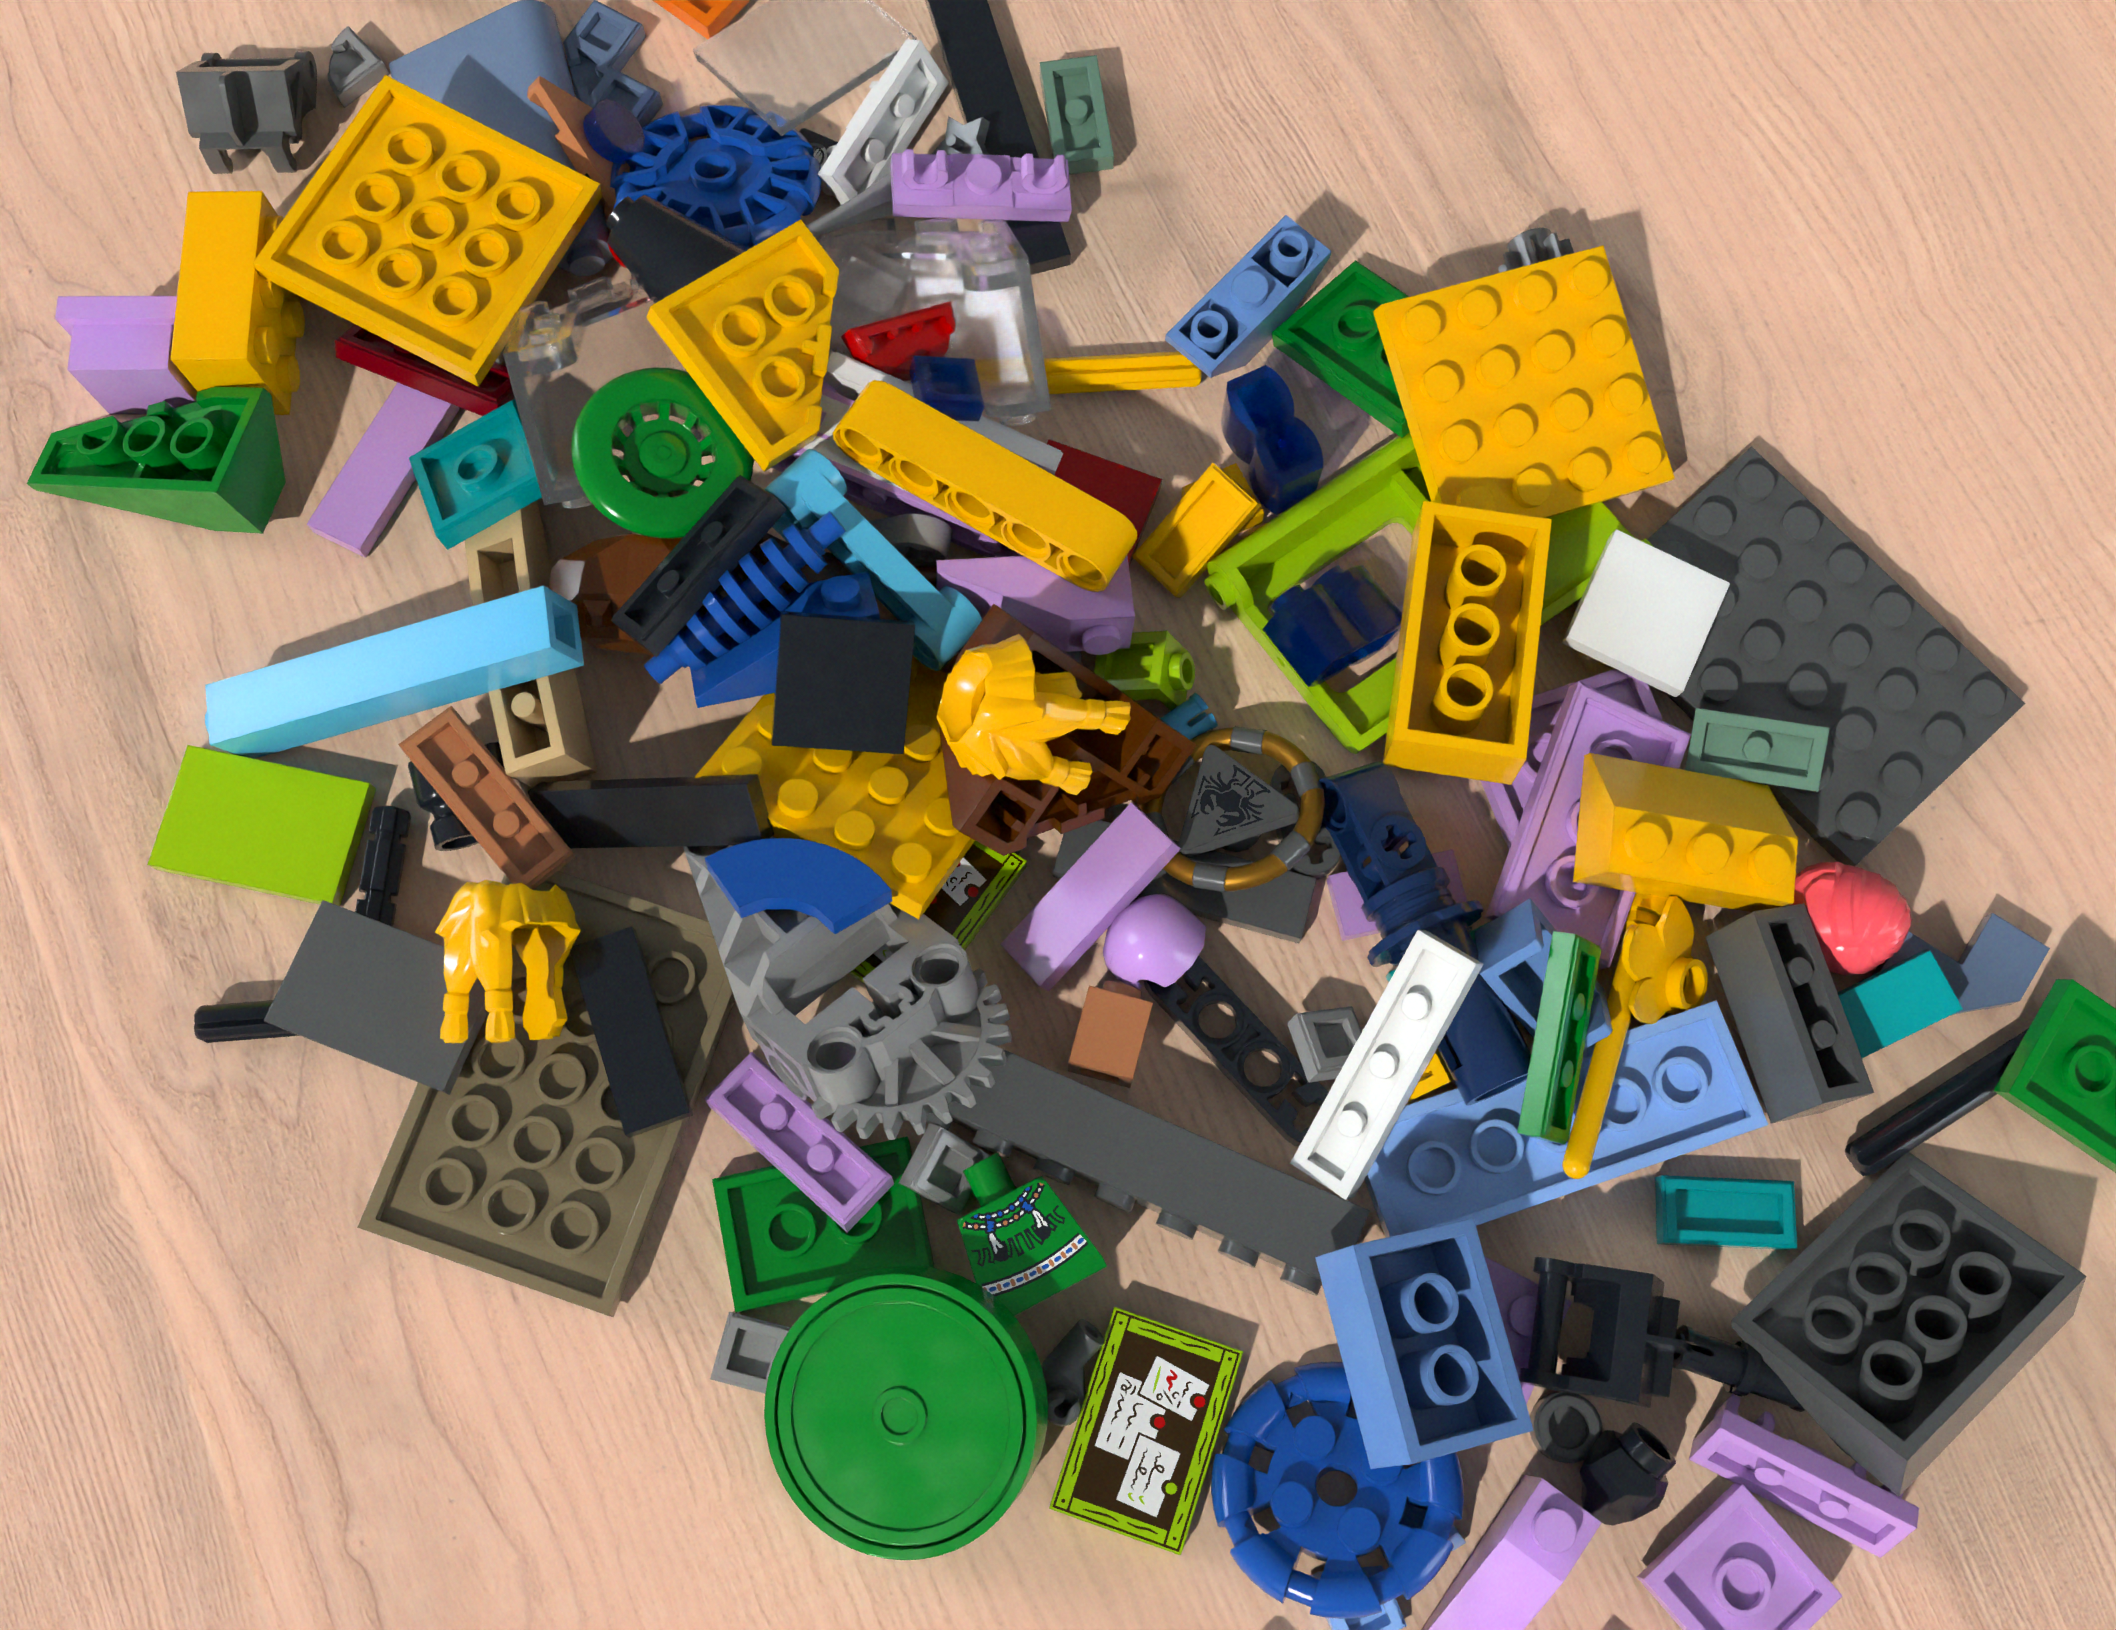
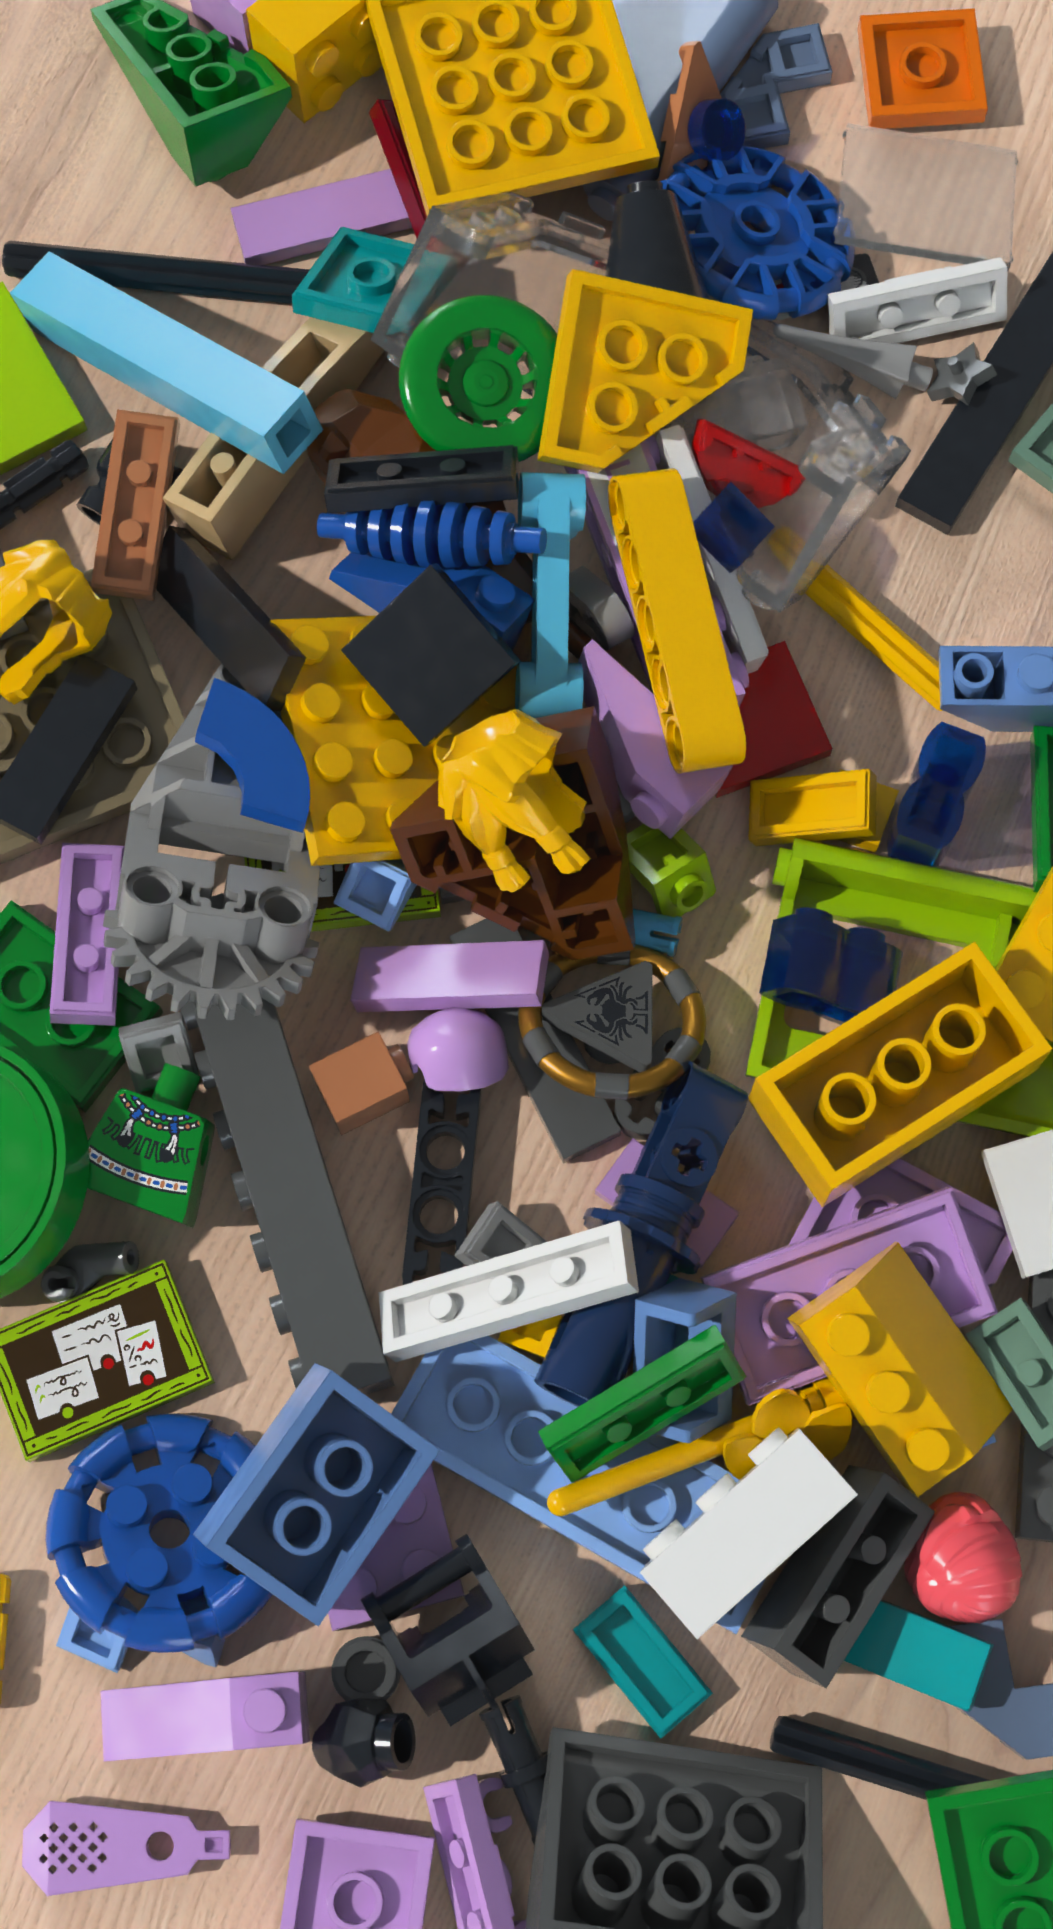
camera: 50 degrees right, 0 degrees up
(308, 617) = (163, 272): none -> black axle
(972, 891) = (376, 891): none -> light blue slope
(980, 186) = (934, 414): lavender plate -> none
(1722, 1042) = (745, 1529): none -> white brick

